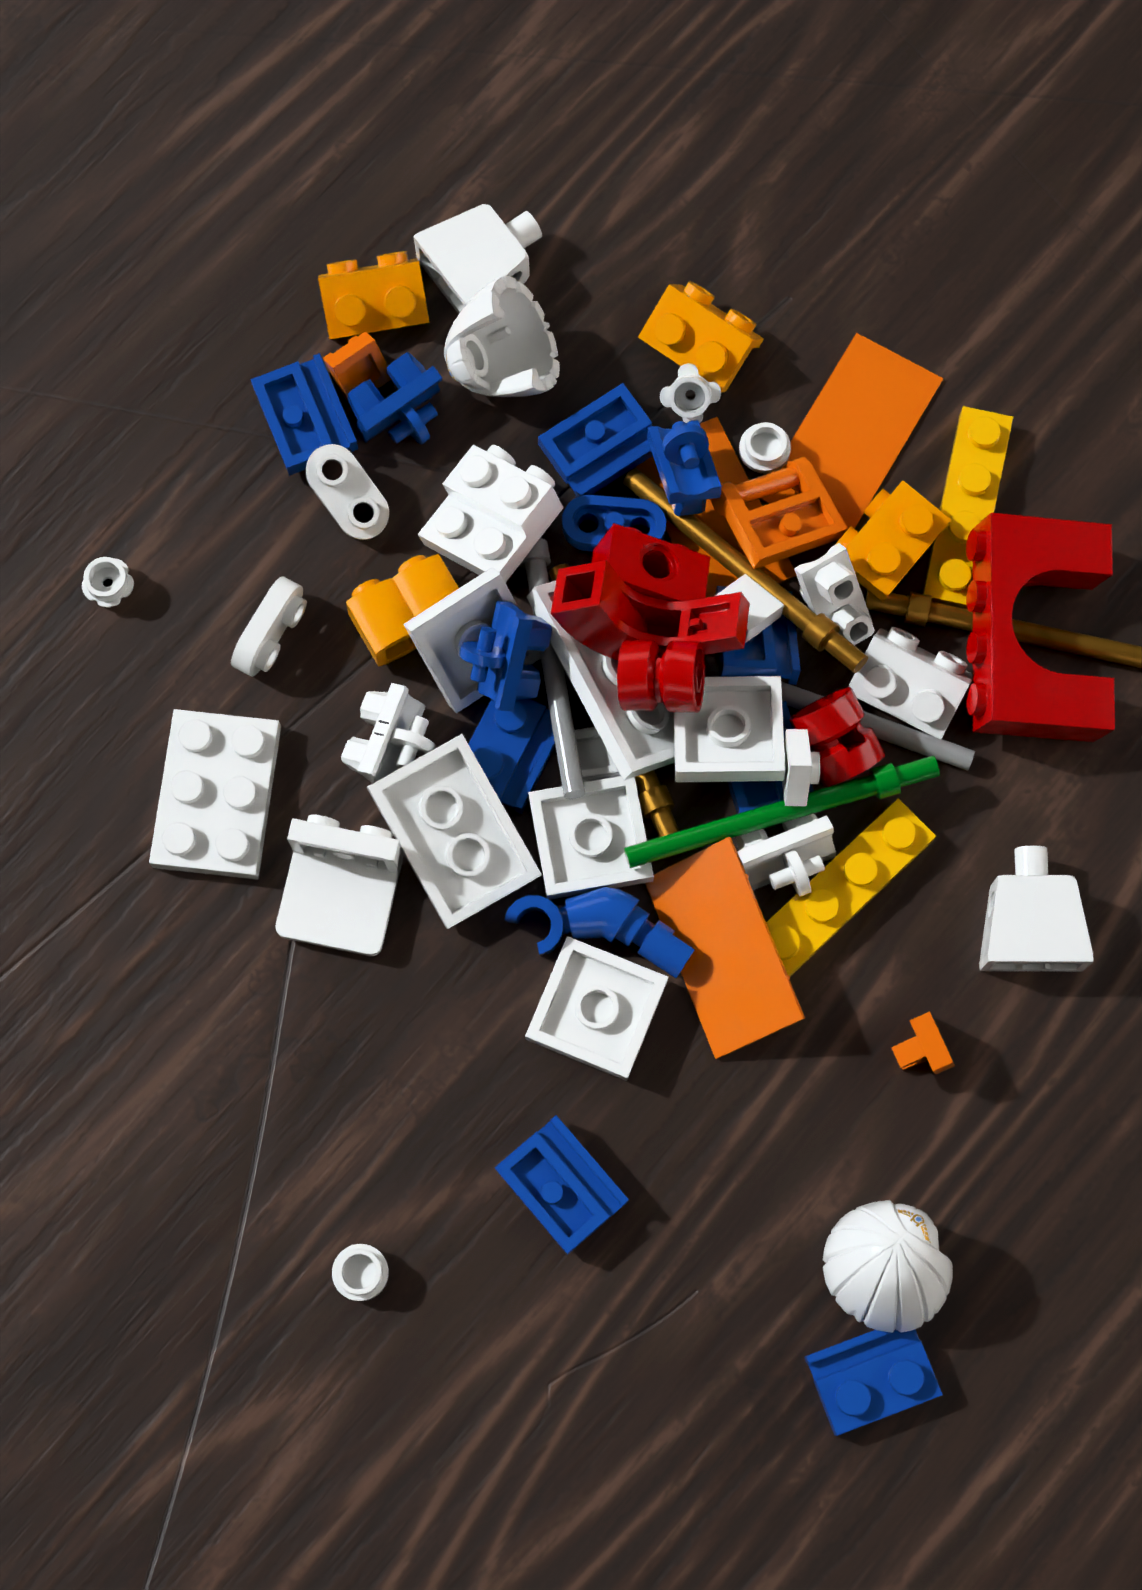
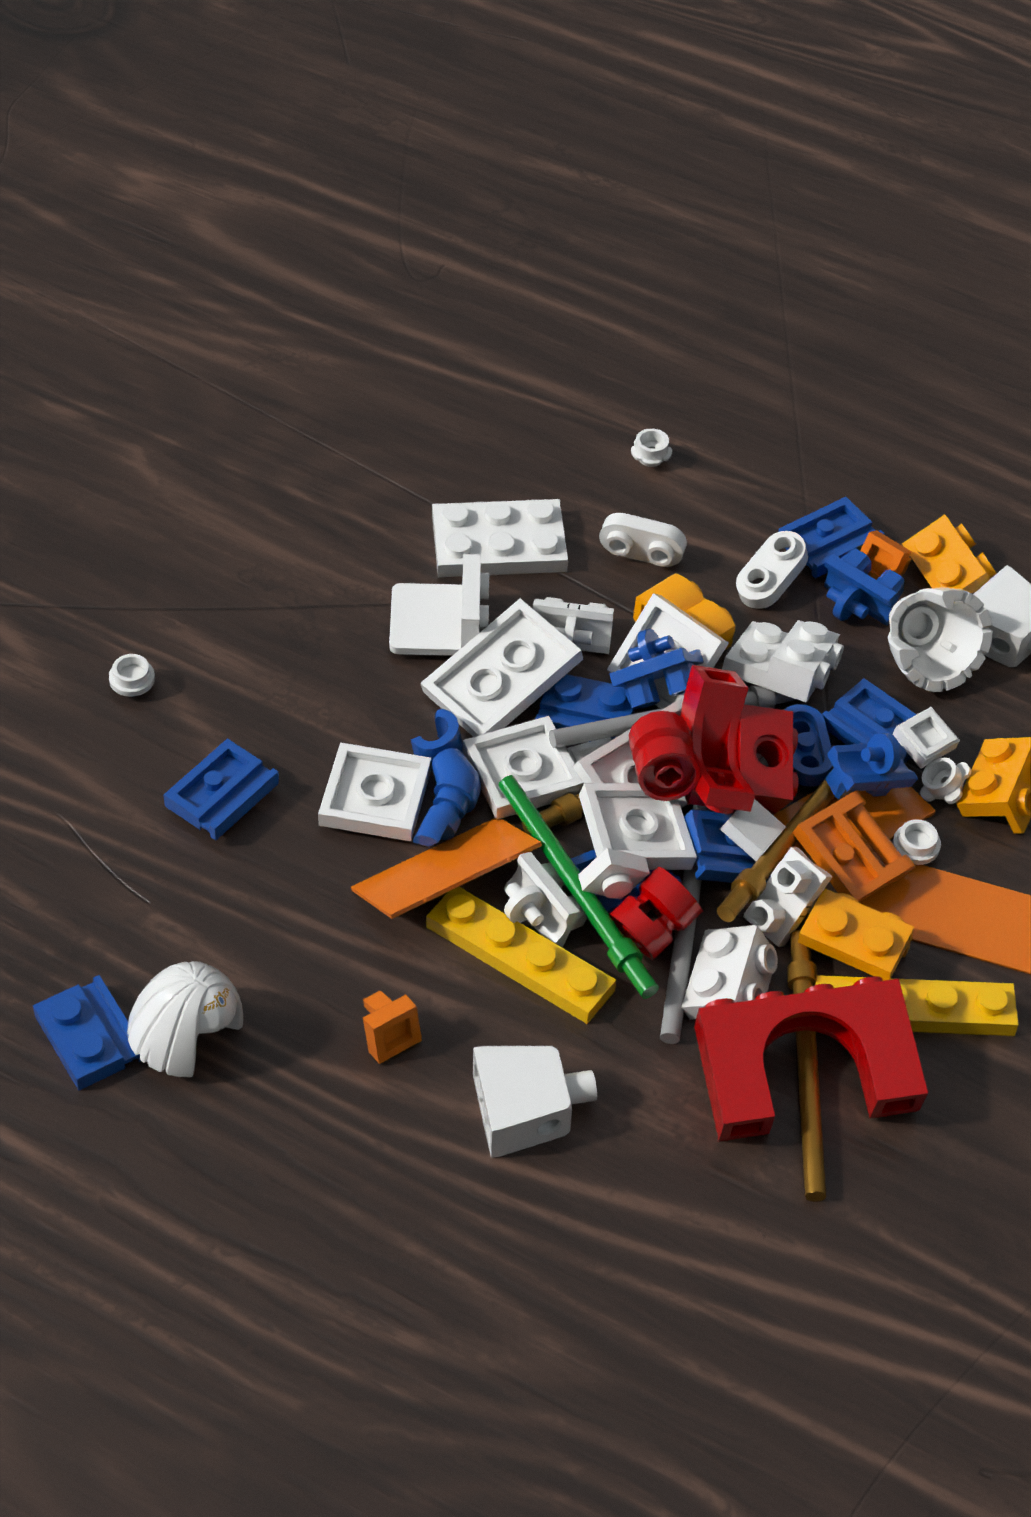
camera: 75 degrees right, 25 degrees down
(641, 396) = (926, 737): none -> white tile

